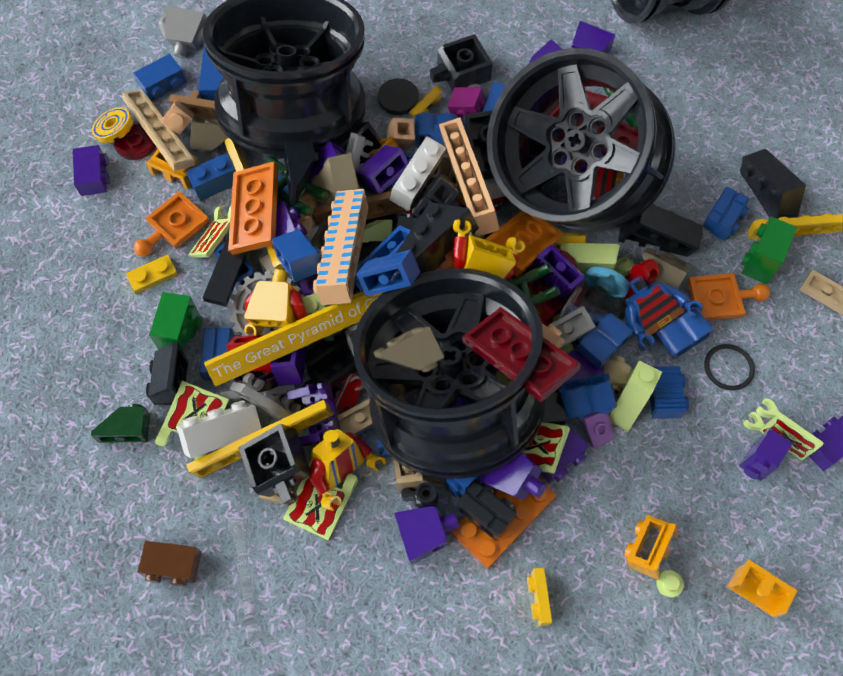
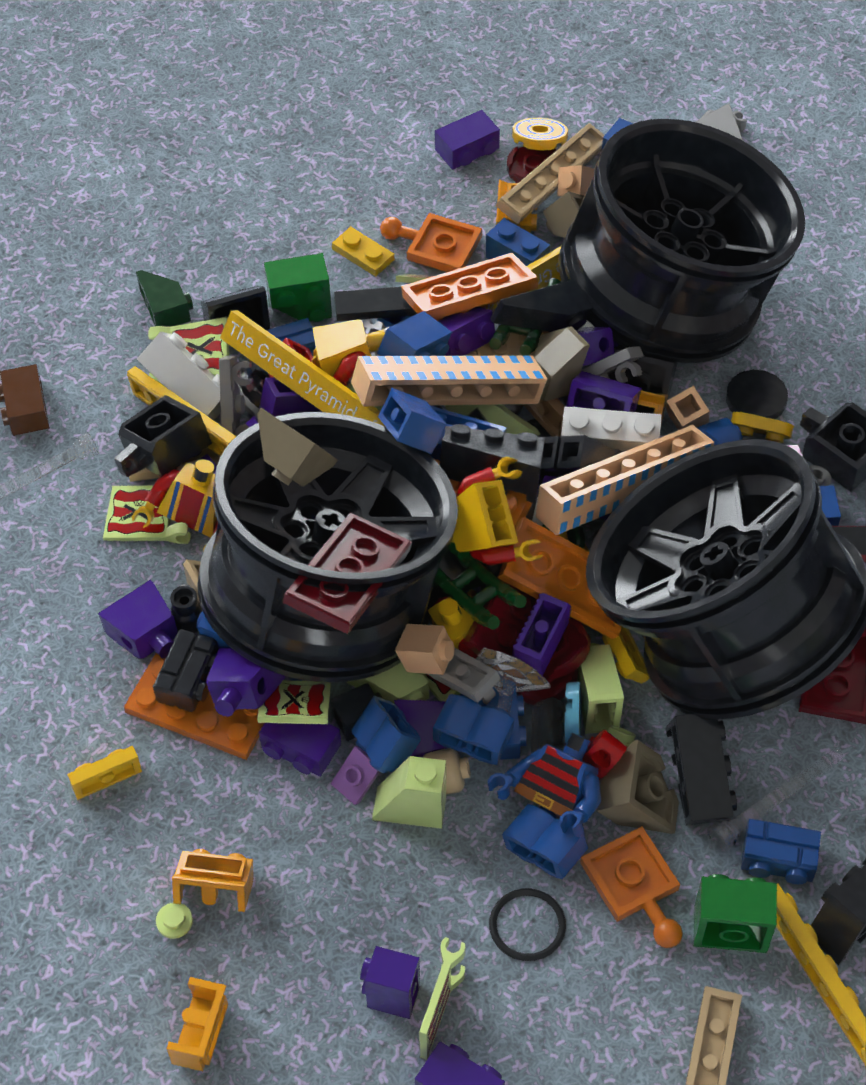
camera: 70 degrees right, 10 degrees down
(668, 395) = (445, 844): blue brick -> none

